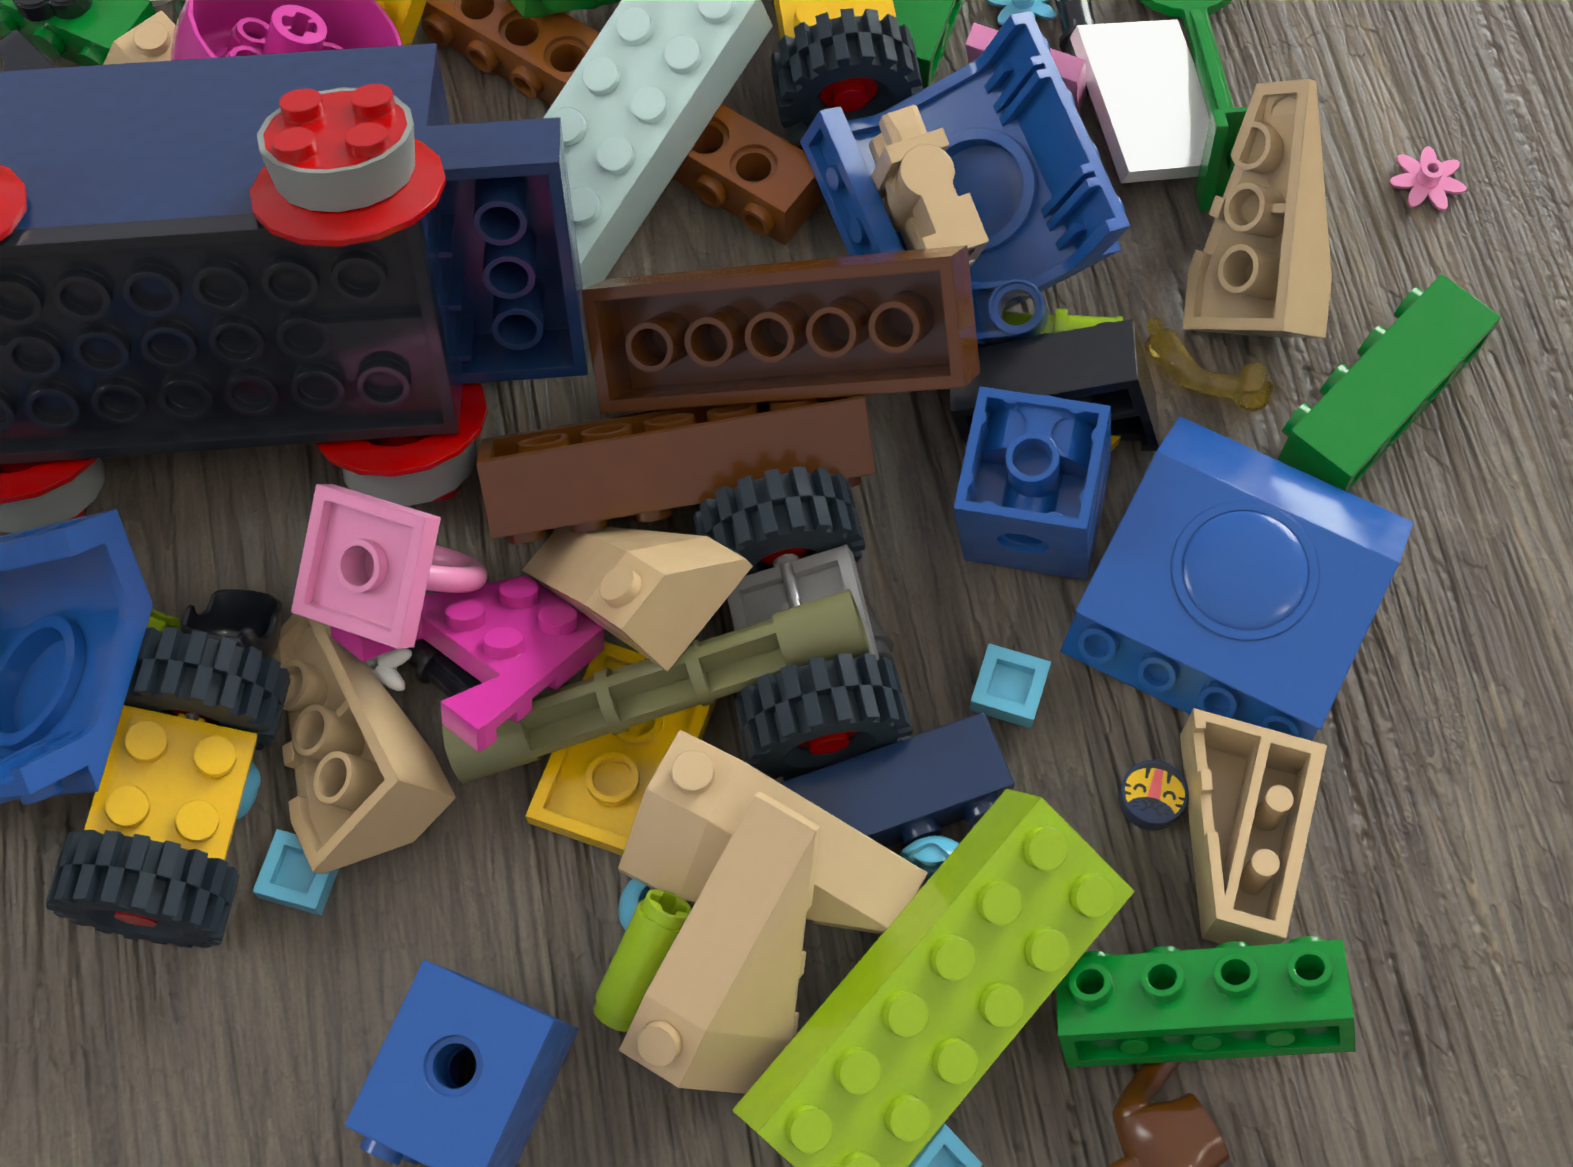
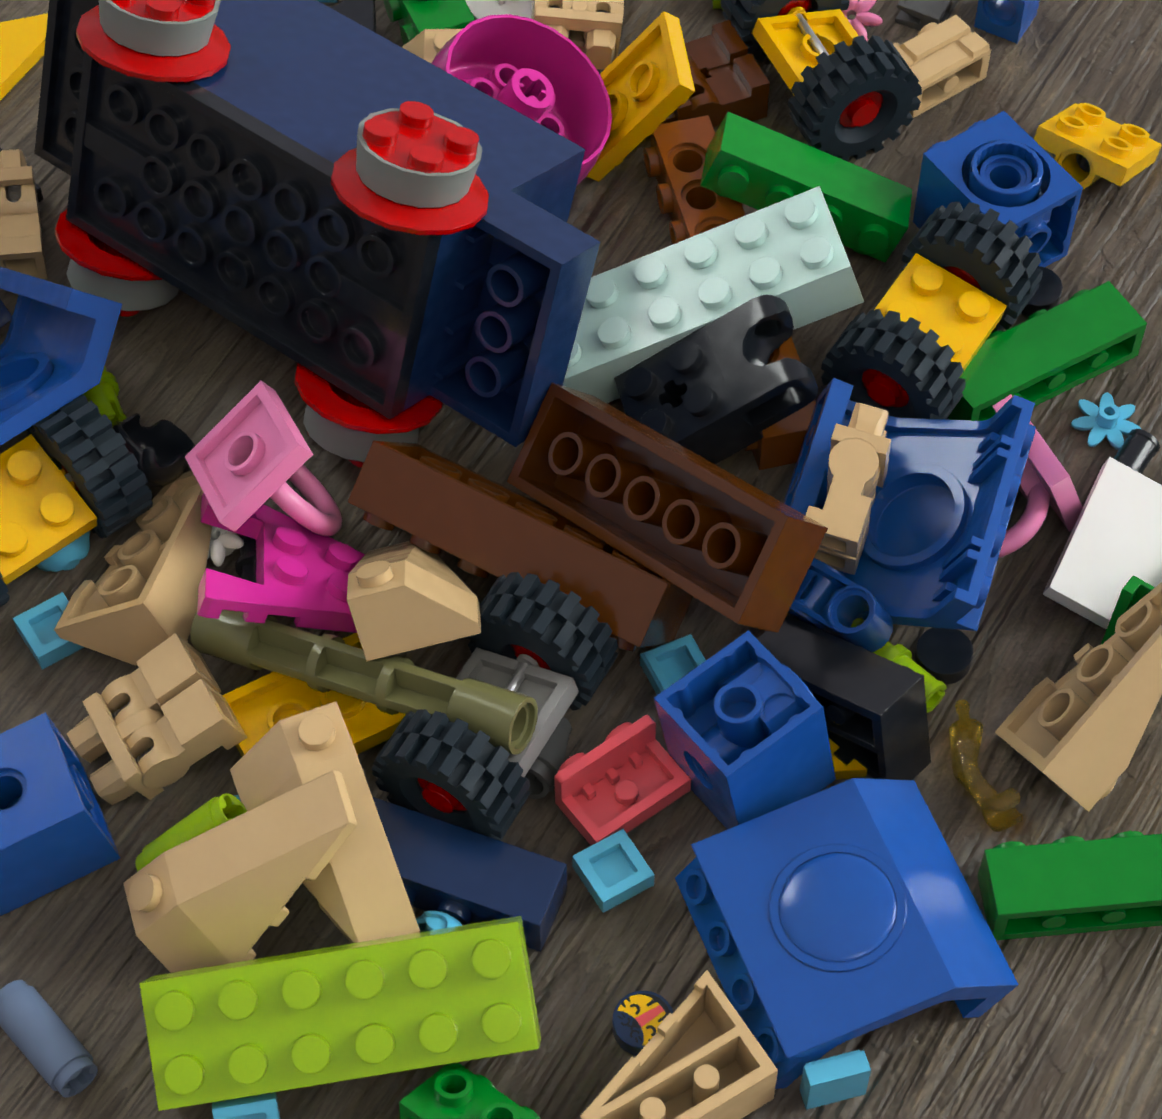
camera: 40 degrees right, 10 degrees down
(473, 837) = (155, 723): none -> tan hips
(713, 183) = (715, 383): none -> black brick
(897, 474) = (671, 662): none -> medium azure tile
(949, 608) = (619, 782): none -> coral bracket
(1088, 292) = (944, 654): none -> black tile
(1347, 713) = (835, 1079): none -> medium azure tile

